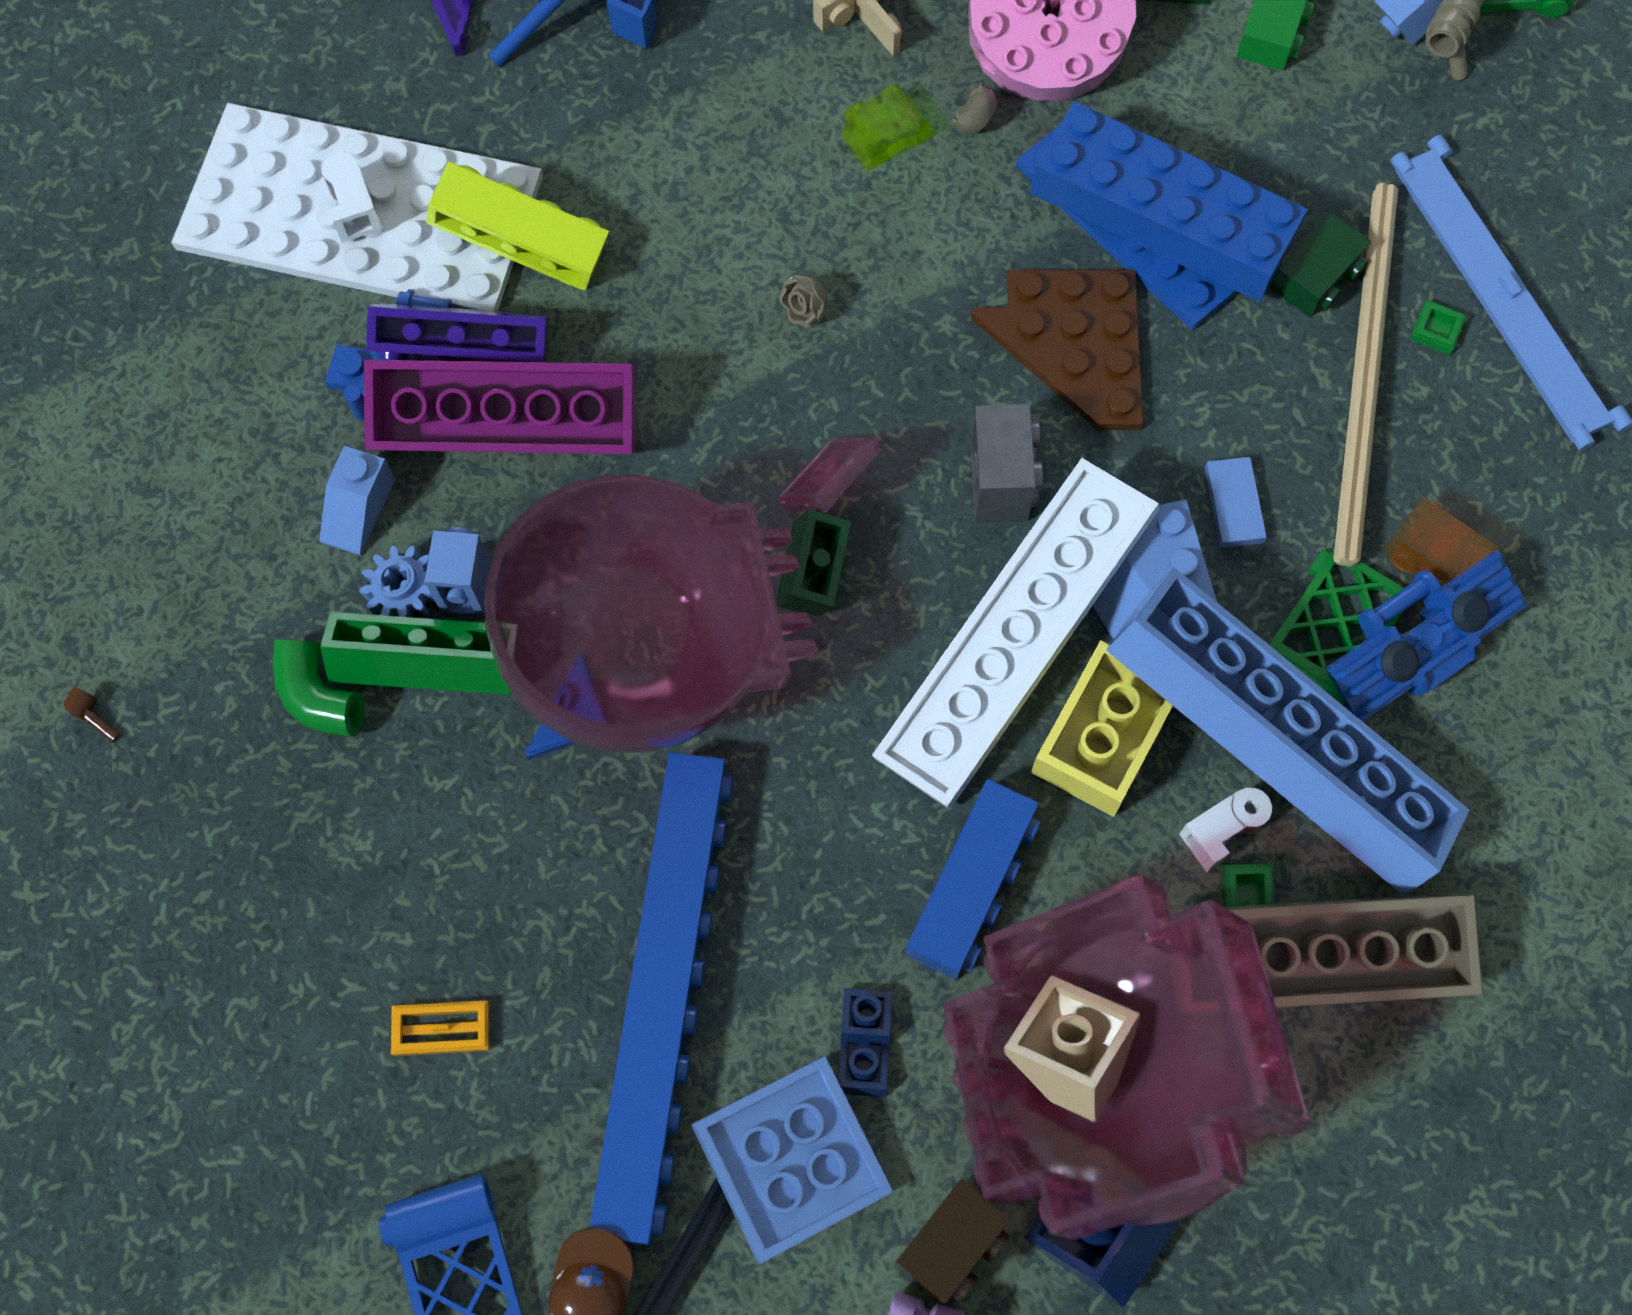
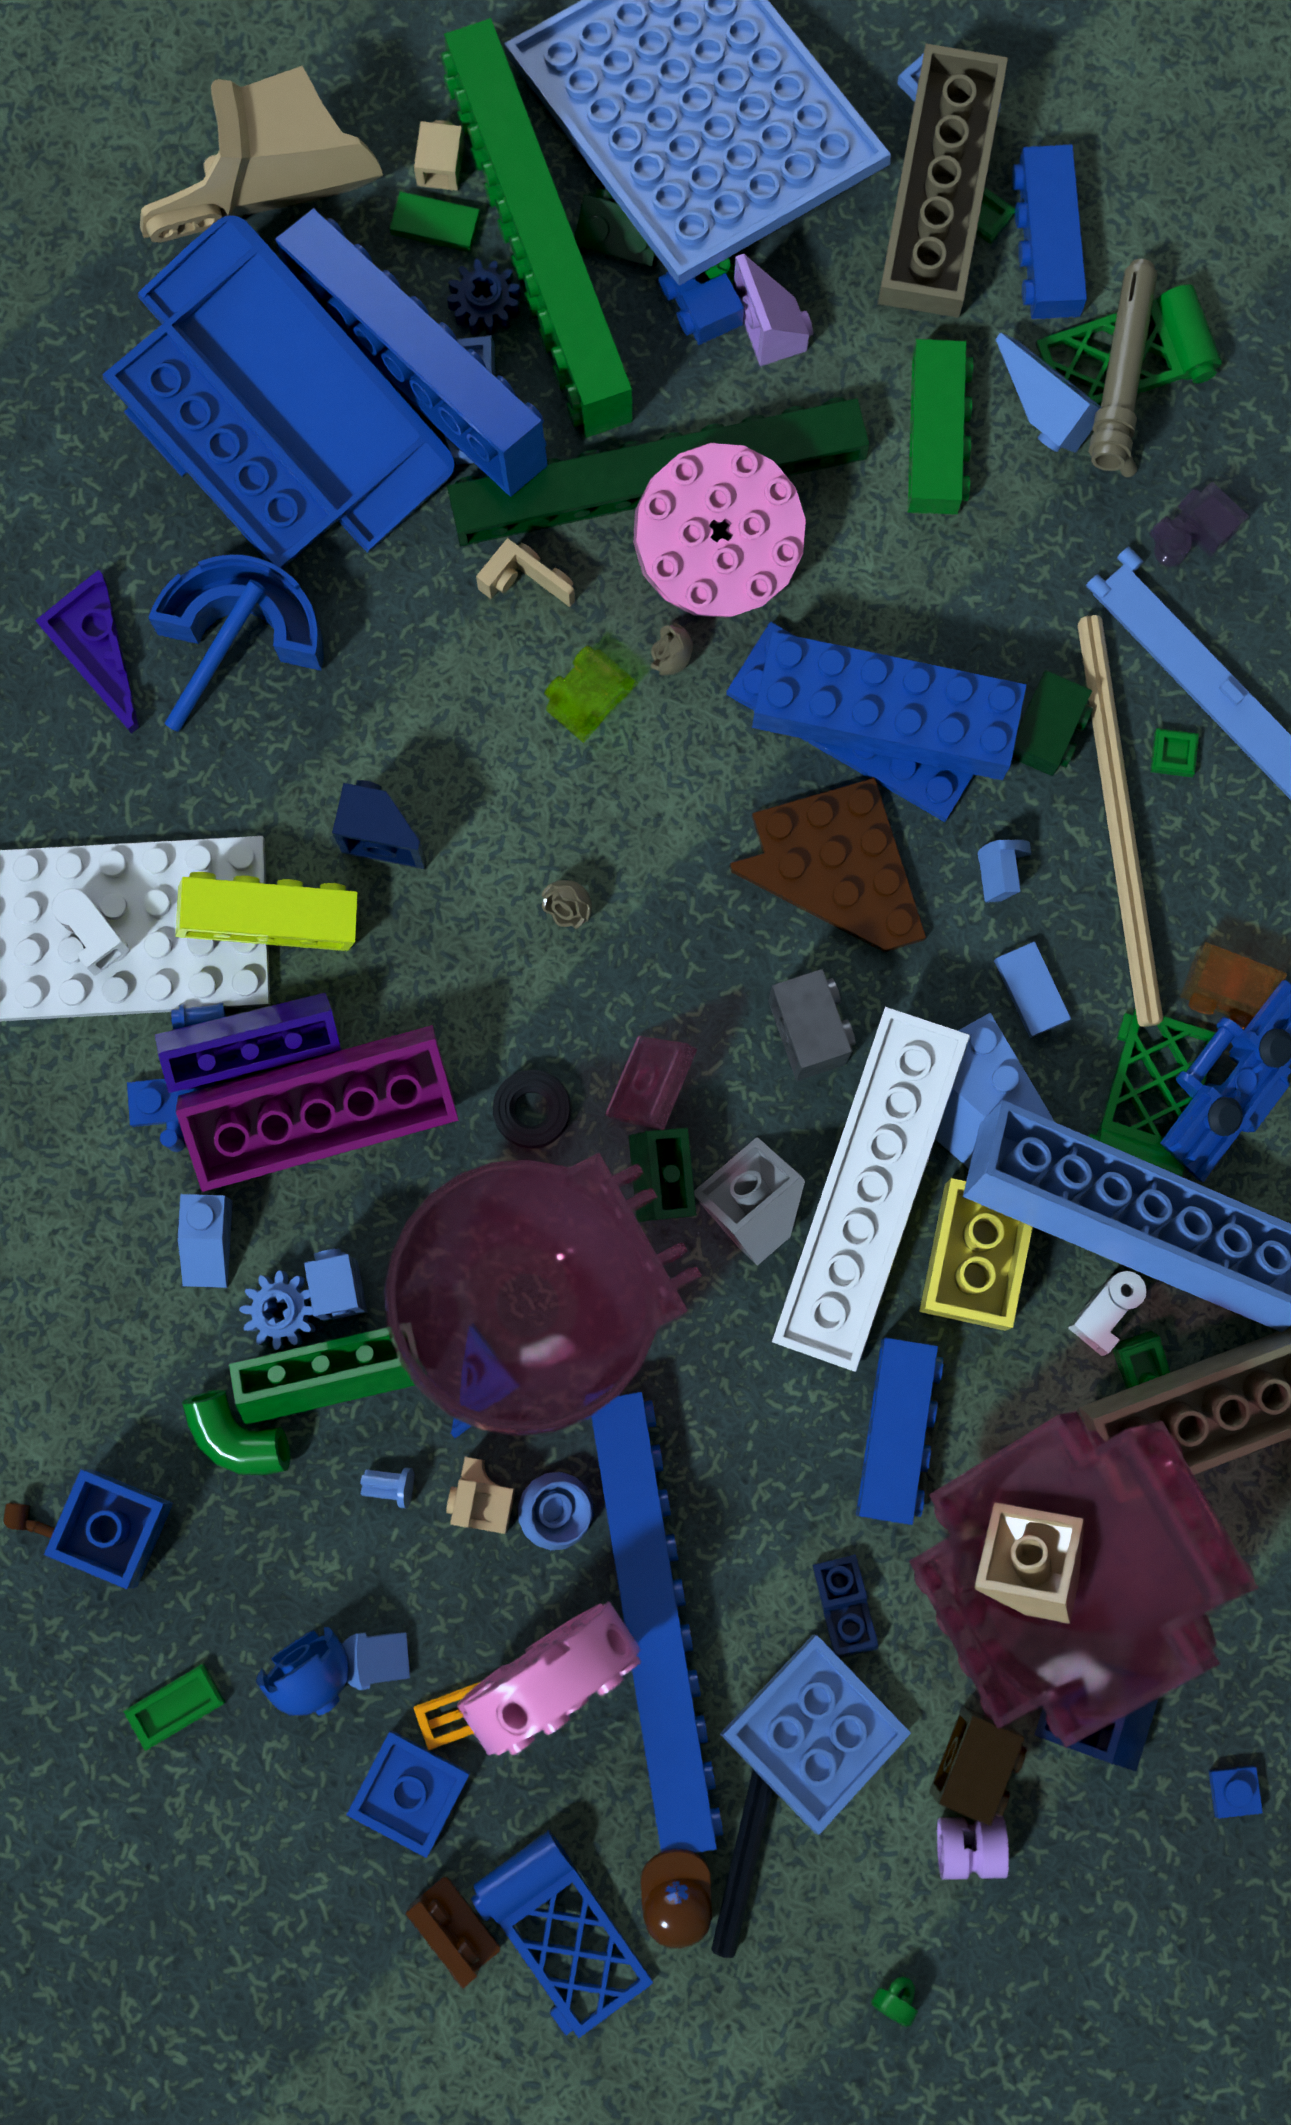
camera: 20 degrees left, 10 degrees up
(158, 736) = (108, 1528): none -> blue brick
(158, 933) = (174, 1707): none -> green tile
(296, 939) = (307, 1675): none -> blue cylinder
(347, 1246) = (453, 1930): none -> reddish brown bracket
(355, 1091) = (408, 1793): none -> blue plate
(369, 944) = (376, 1659): none -> medium blue tile
(447, 782) = (389, 1485): none -> medium blue piece
(527, 821) = (479, 1501): none -> tan brick
(530, 1002) = (550, 1680): none -> bright pink brick
(590, 847) = (542, 1506): none -> medium blue hat
(643, 180) = (374, 828): none -> dark blue slope
(714, 449) = (531, 1082): none -> black tyre
(896, 617) = (754, 1199): none -> light grey slope
(1235, 377) = (1000, 868): none -> medium blue tile
(1523, 128) = (1205, 518): none -> clear purple brick

